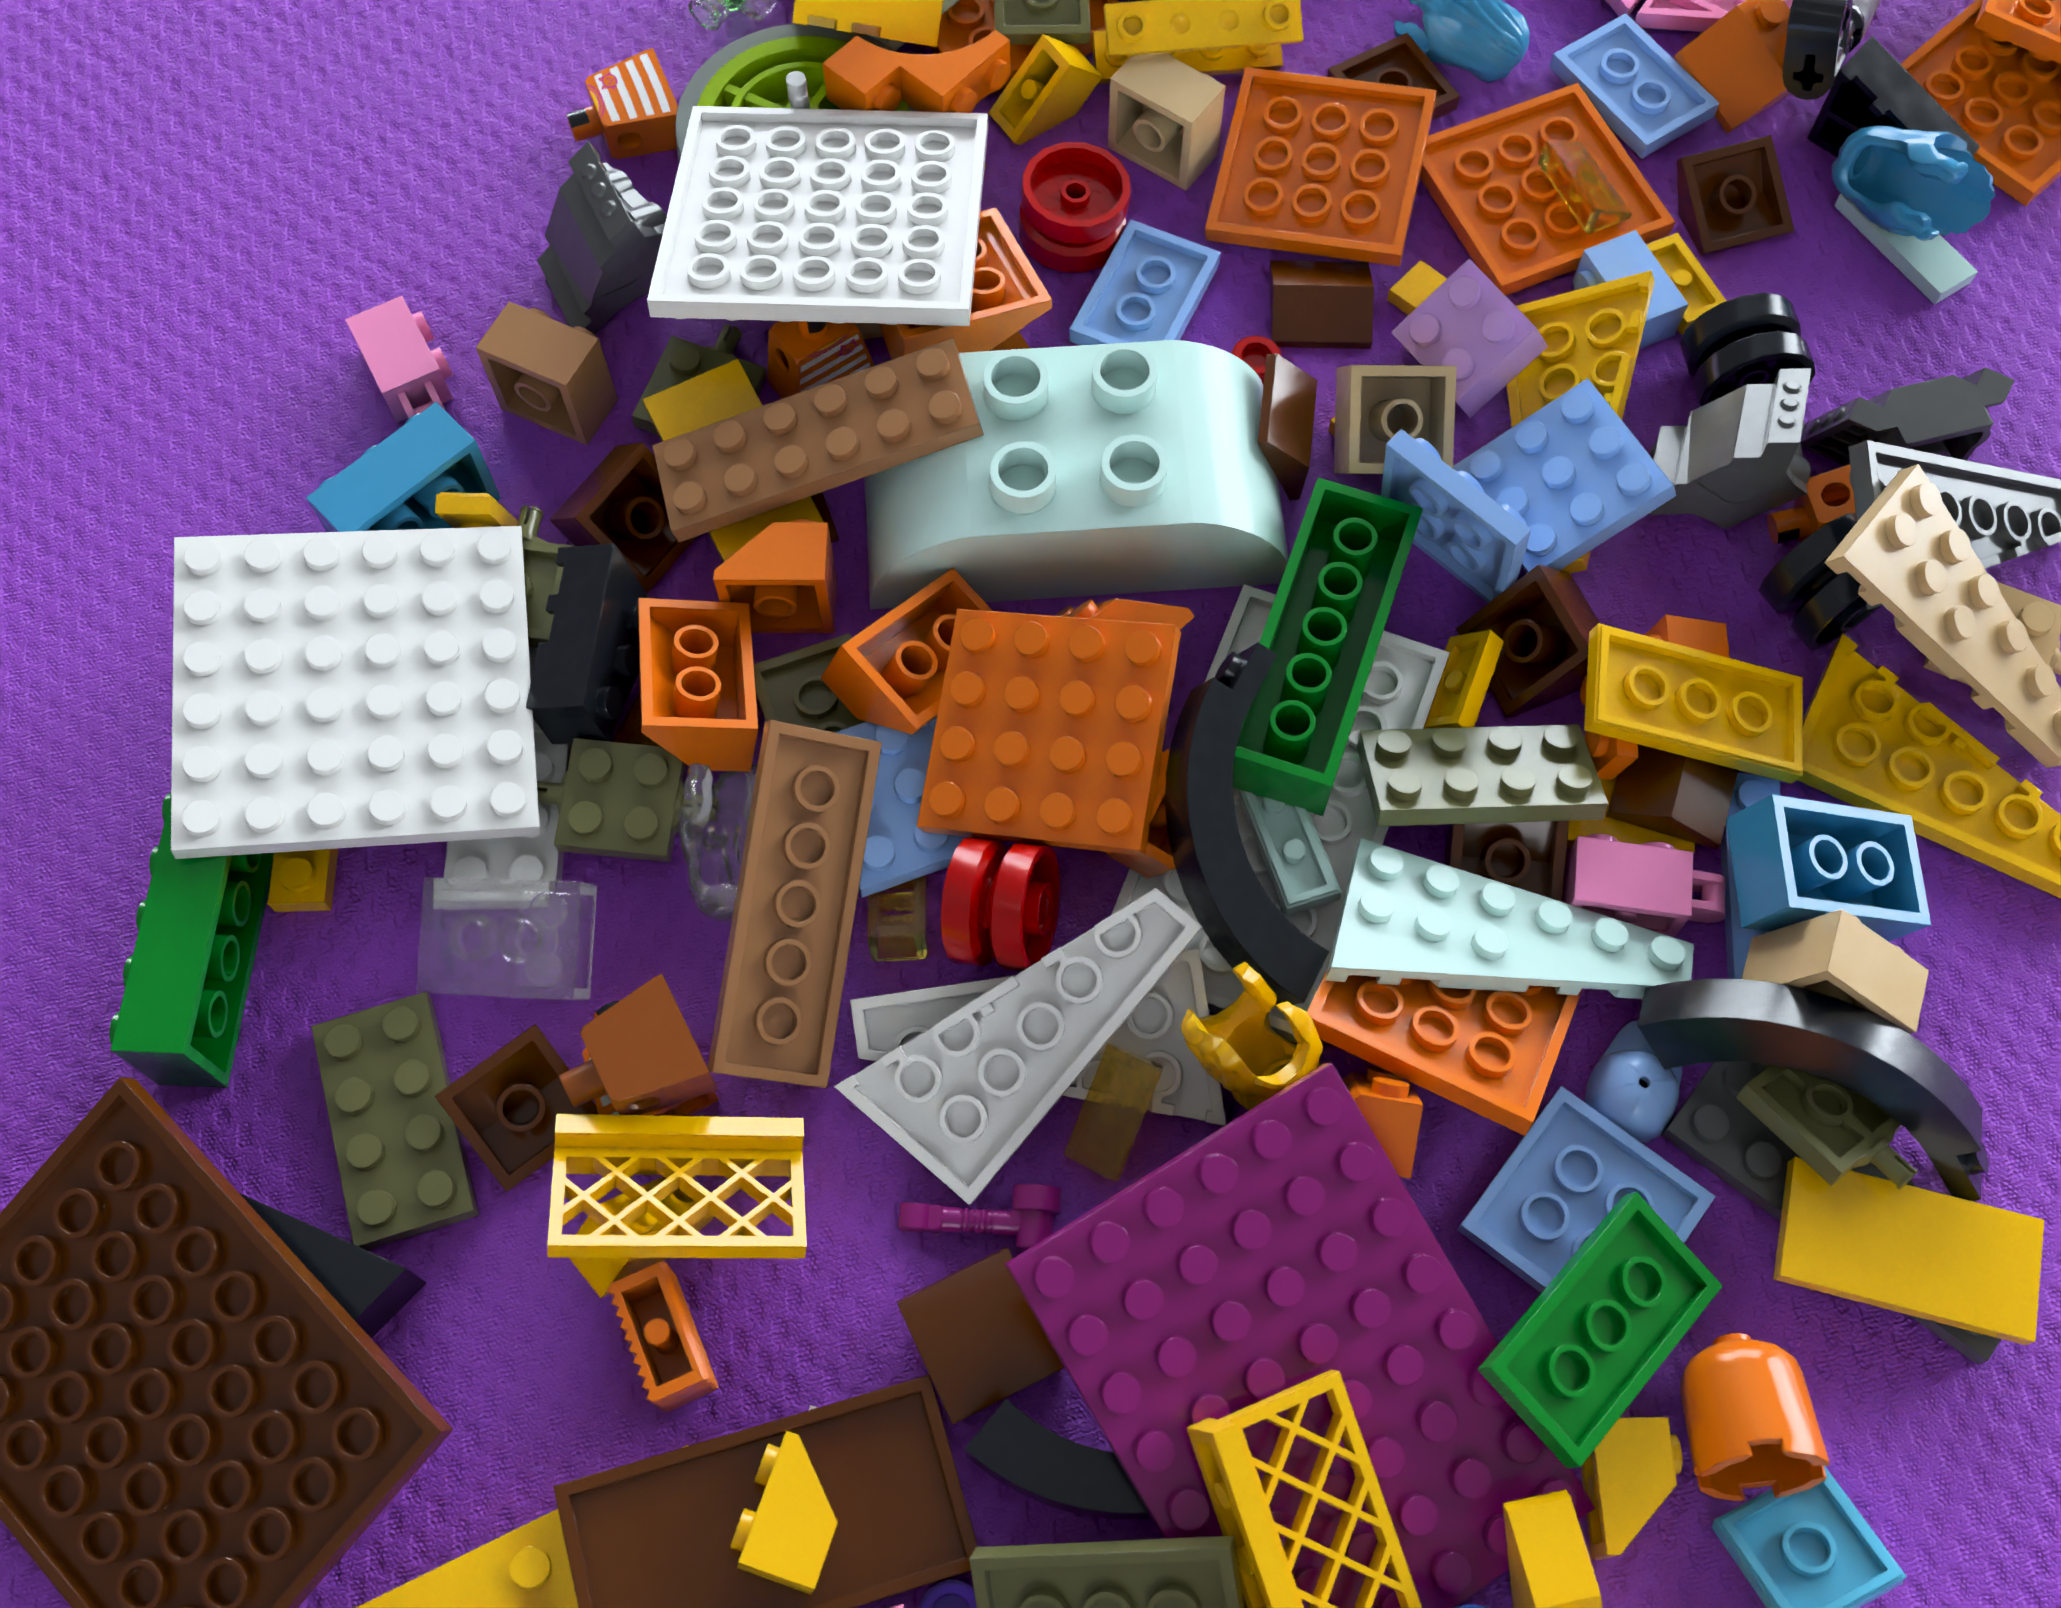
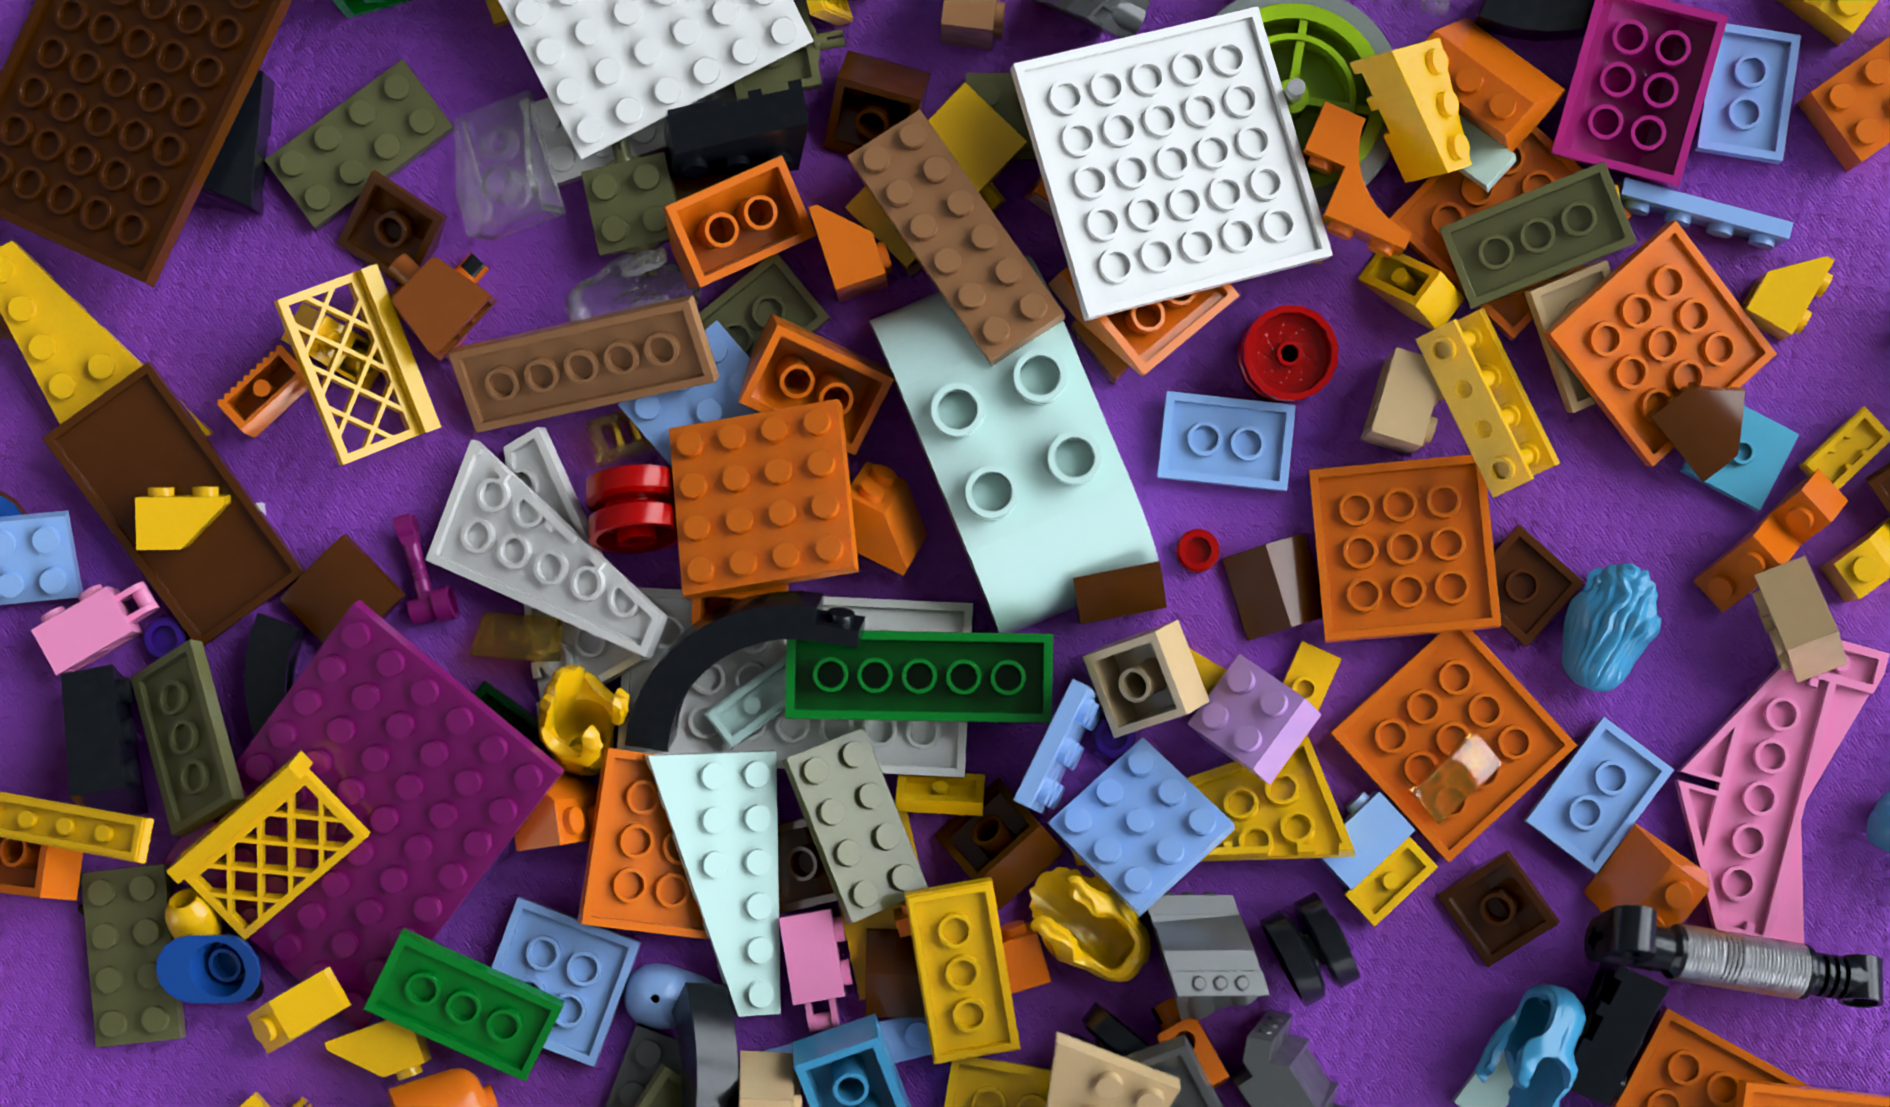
camera: 75 degrees right, 20 degrees up
(1663, 568) = (1088, 925): none -> yellow hair

